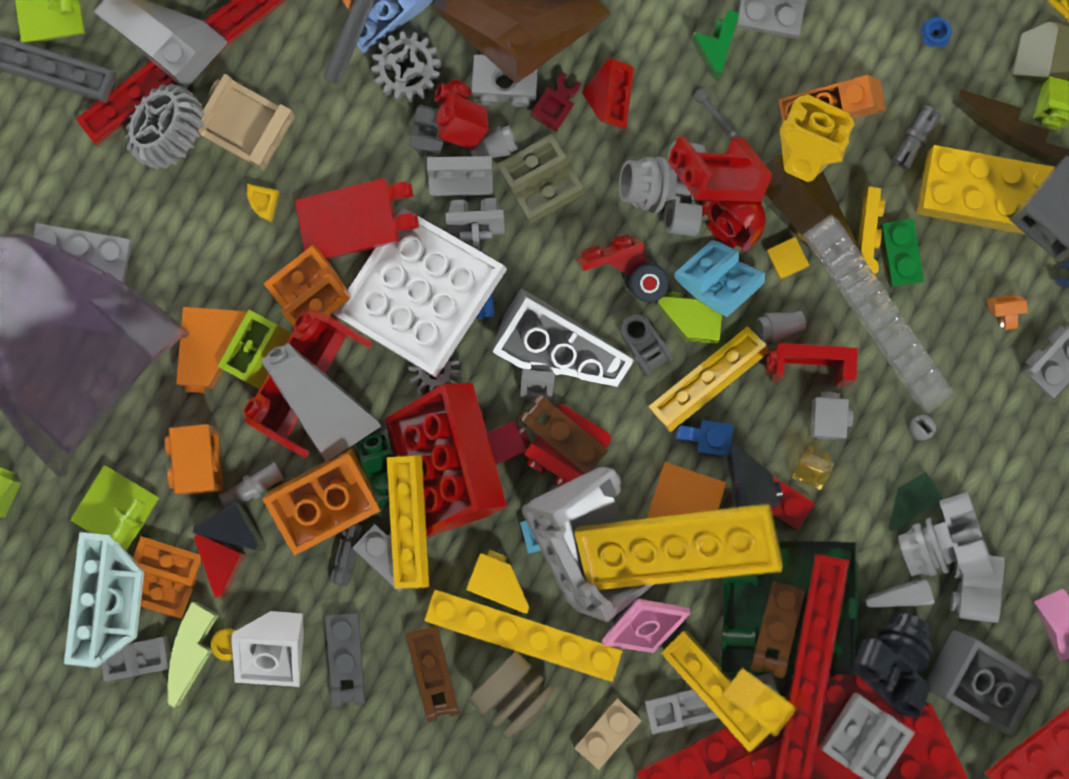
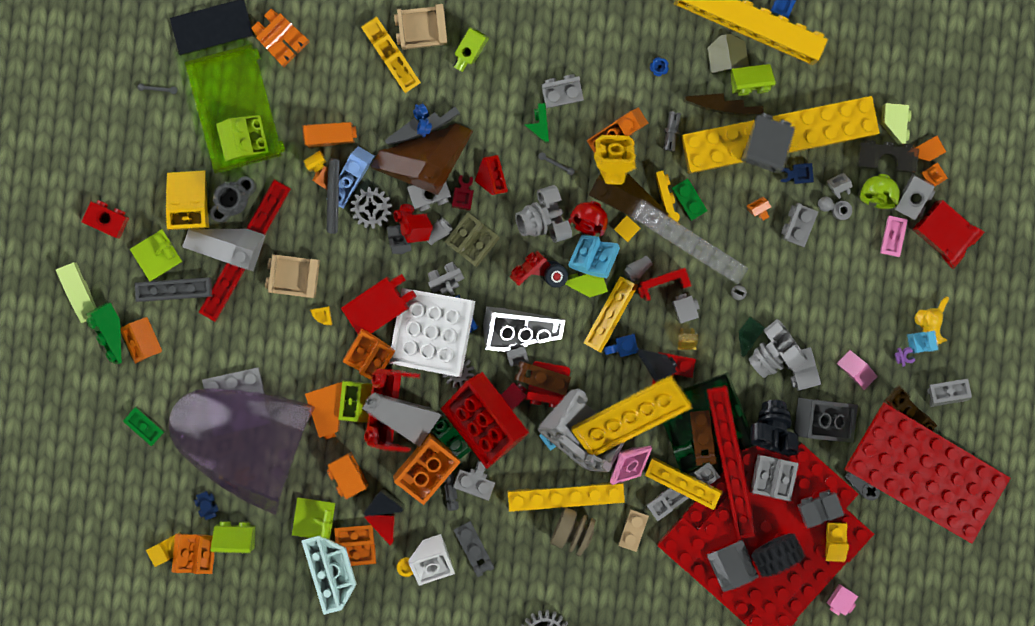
camera: 25 degrees left, 5 degrees up
(138, 659) = (361, 594): light grey slope -> none
(164, 126) = (251, 298): light grey gear -> none
(189, 652) = (387, 579): yellowish green slope -> none
(252, 486) = (383, 476): light grey pin -> none
(408, 522) = (478, 461): yellow plate -> none
(432, 672) = (524, 536): reddish brown plate -> none
(460, 176) = (427, 258): light grey bracket -> none
(497, 582) = (540, 473): yellow slope -> none
(646, 346) = (568, 310): dark grey piece -> none
(684, 492) = (623, 384): orange slope -> none
(721, 176) = (572, 200): red panel -> none
(759, 702) = (708, 482): yellow slope -> none
(907, 594) = (766, 388): light grey slope -> none

